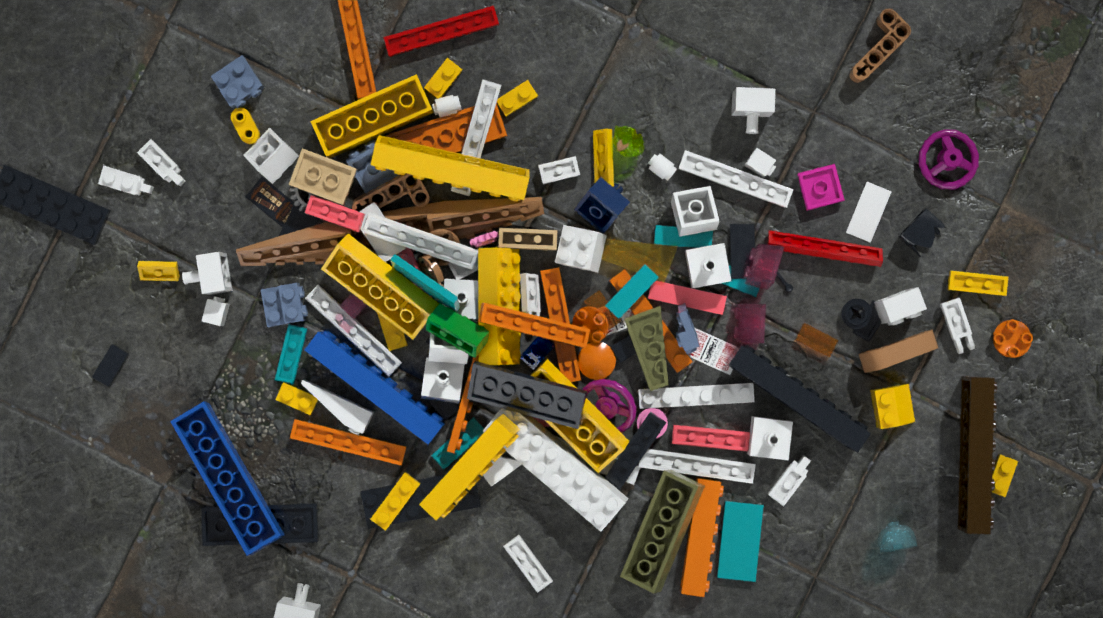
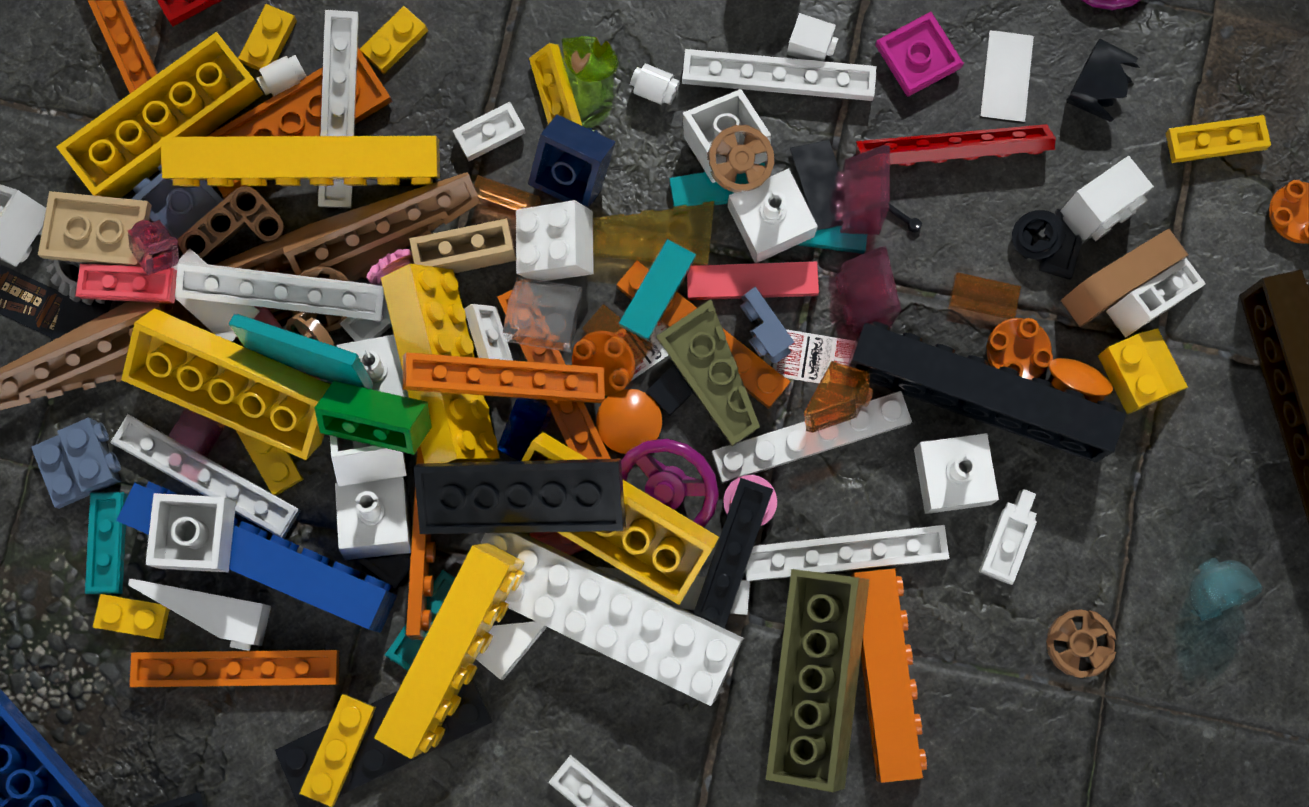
camera: 15 degrees left, 10 degrees down
(345, 370) = (190, 532): none -> white brick
(355, 198) = (149, 239): none -> clear pink brick
(560, 212) = (505, 194): none -> clear orange tile
(564, 288) = (542, 314): none -> clear slope
(698, 232) = (740, 158): none -> medium nougat piece
(710, 438) = (856, 501): coral tile -> none
(716, 379) = (838, 397): none -> clear orange slope
(740, 541) = (956, 666): teal tile -> none
(812, 546) = (1081, 643): none -> medium nougat piece
(826, 376) = (1020, 346): none -> orange dish
(854, 403) = (1080, 377): none -> orange dish
(913, 367) = (1155, 297): none -> white slope
(957, 323) = (1207, 212): white hinge -> none

